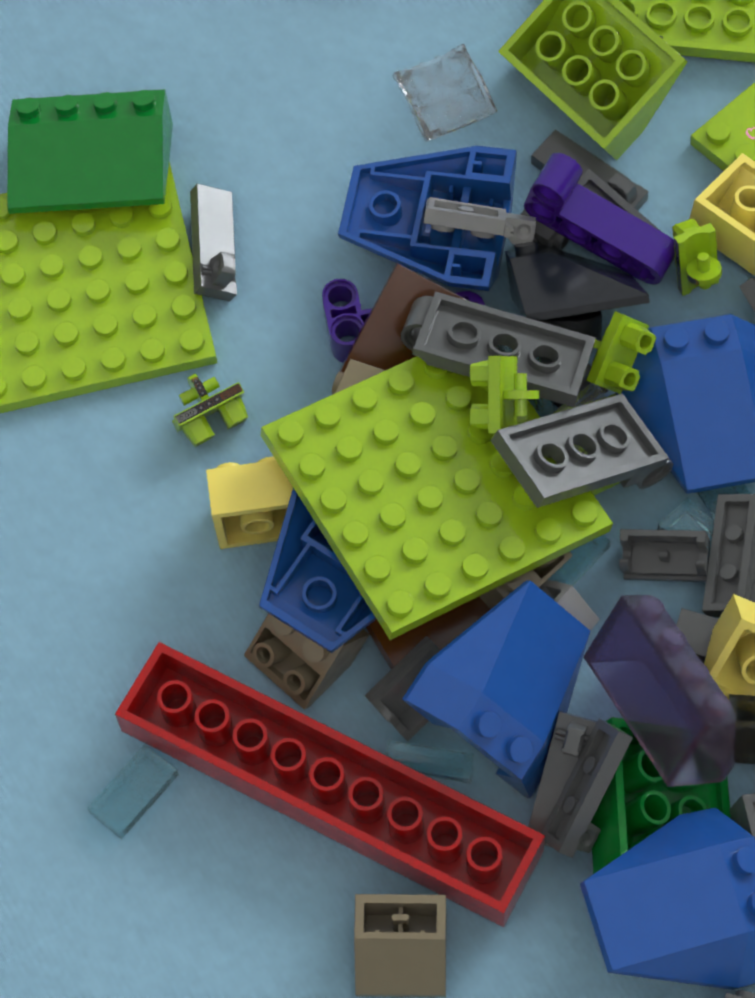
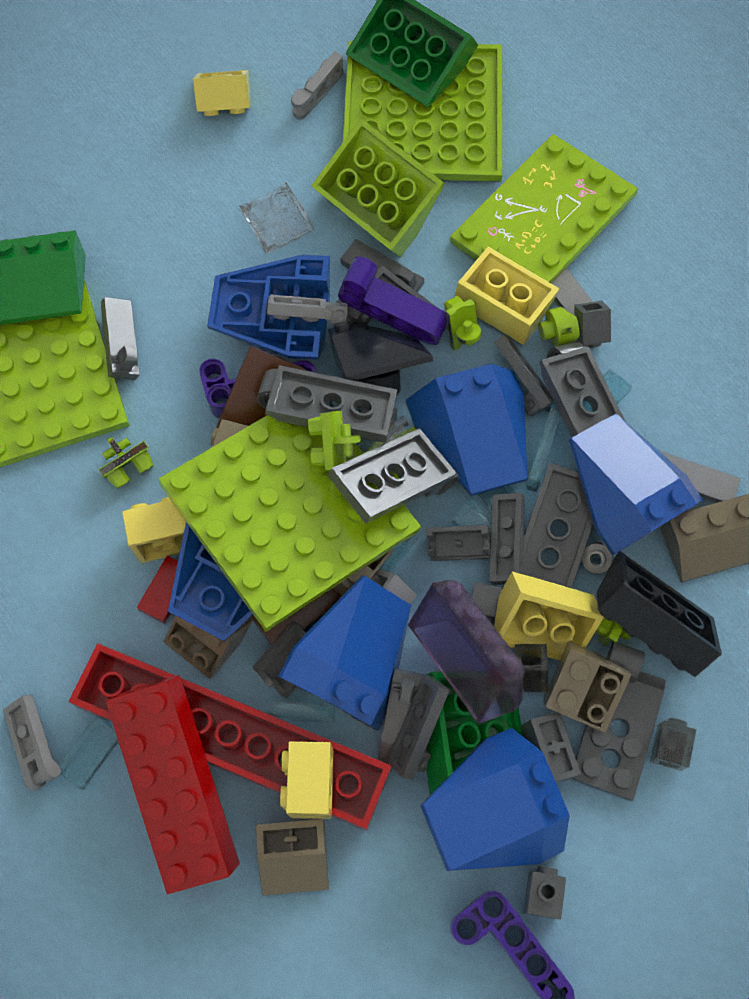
camera: 10 degrees left, 5 degrees up
(56, 768) = (30, 743): none -> light grey plate
(242, 593) = (158, 594): none -> red tile
(249, 829) = (173, 784): none -> red brick
(434, 830) = (308, 780): none -> light yellow brick
(617, 353) = (413, 399): lime hips -> none

